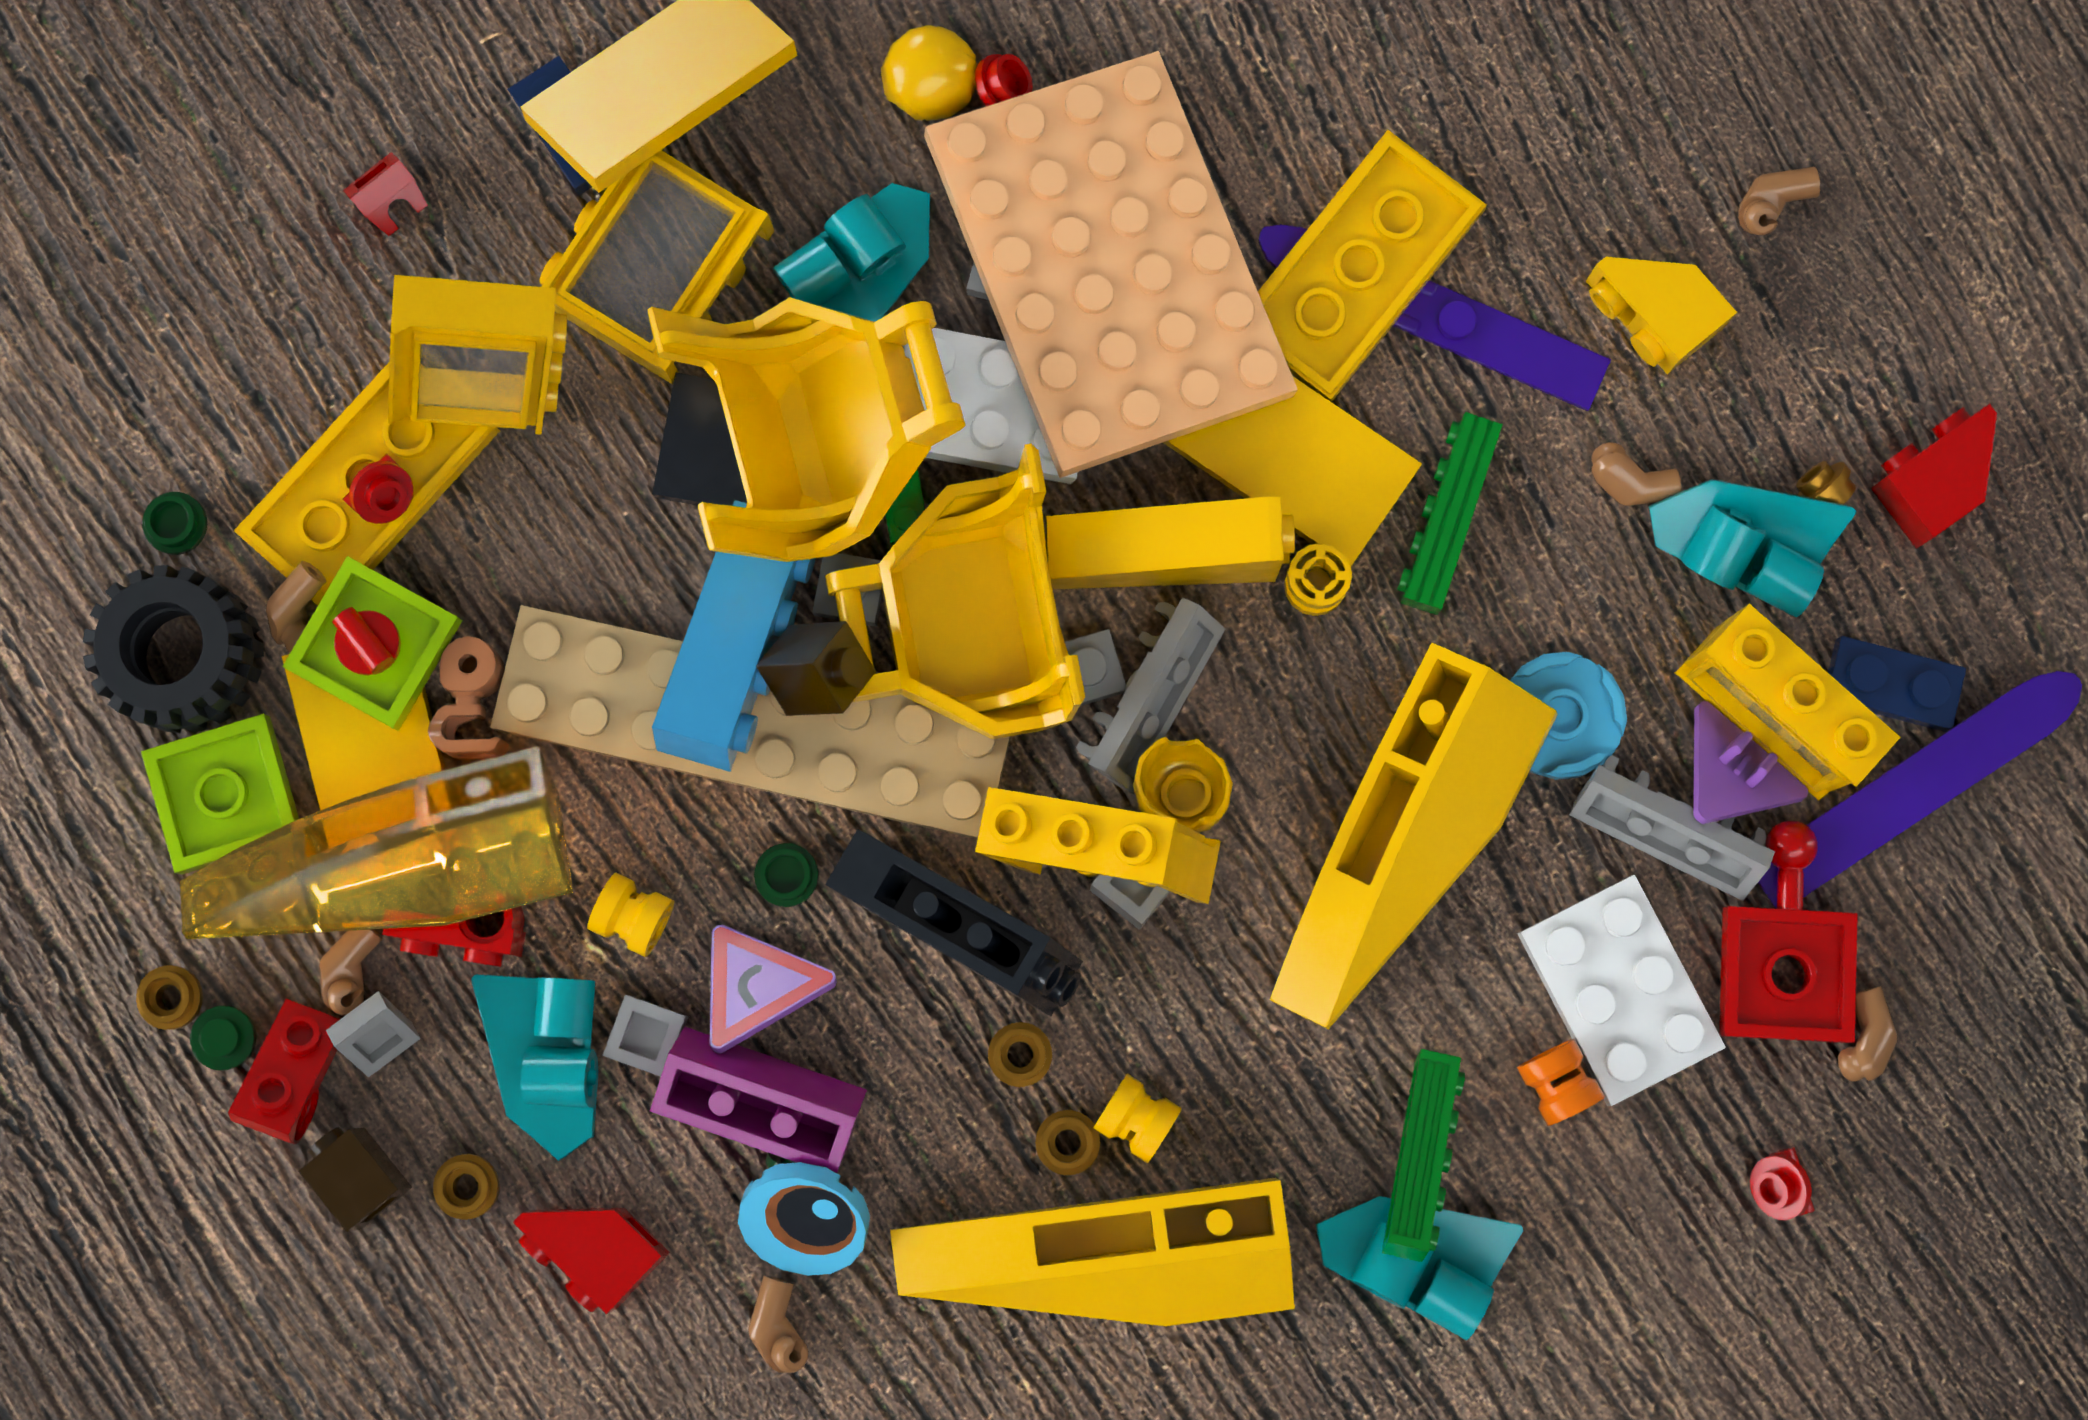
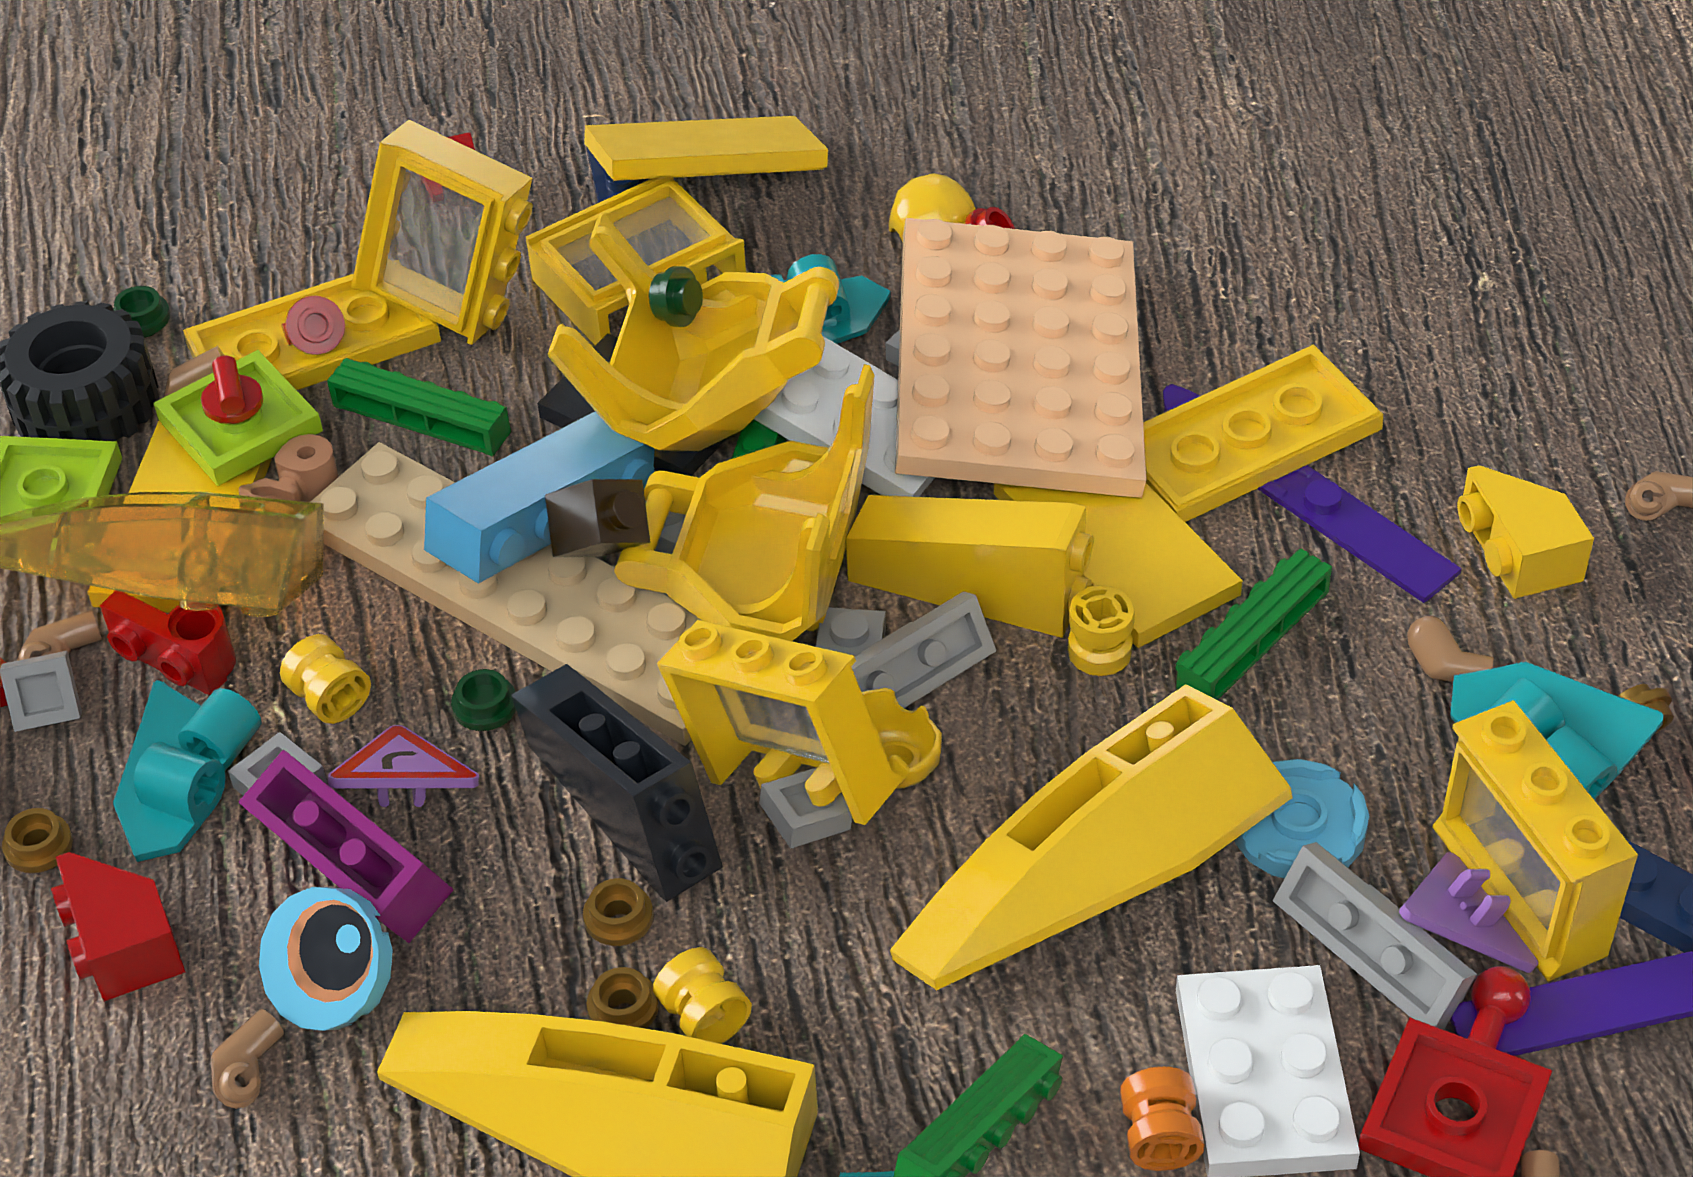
camera: 20 degrees right, 35 degrees down
(532, 537) = (419, 406): none -> green piece
(764, 366) = (675, 296): none -> dark green plate

